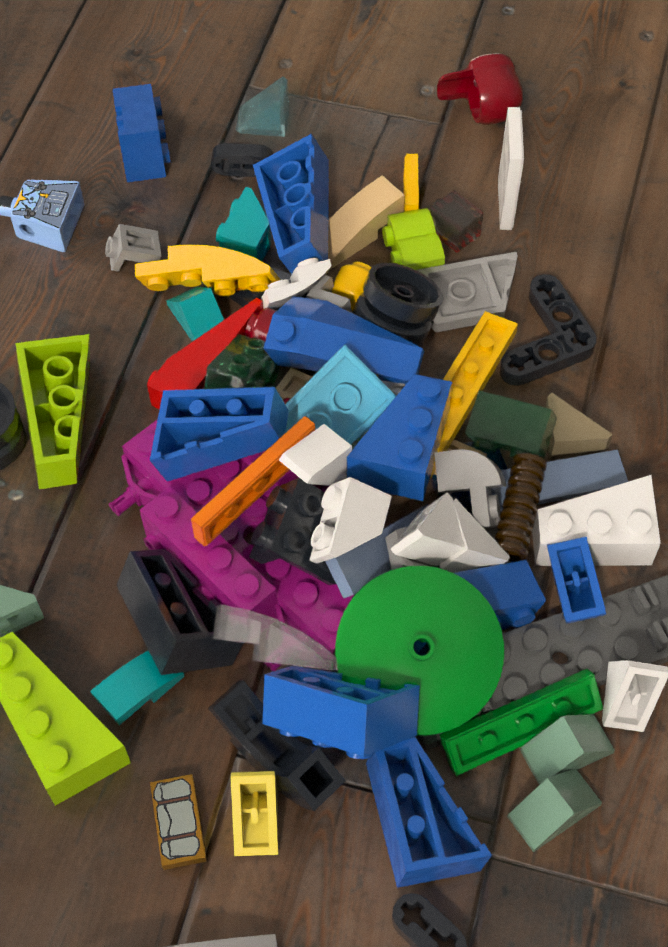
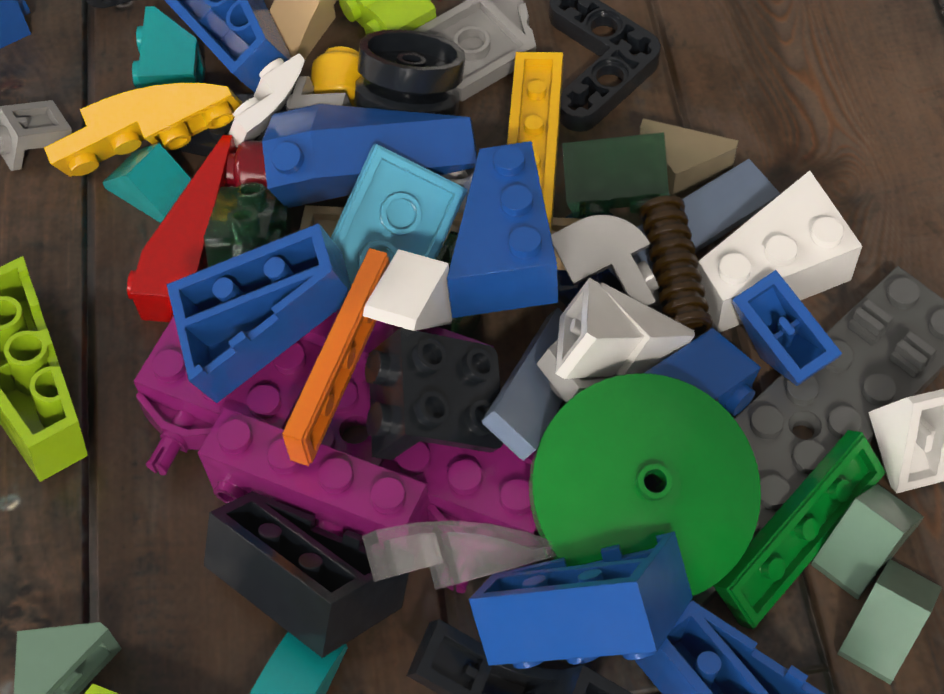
camera: 20 degrees left, 0 degrees up
(349, 518) = (488, 356): white slope -> none

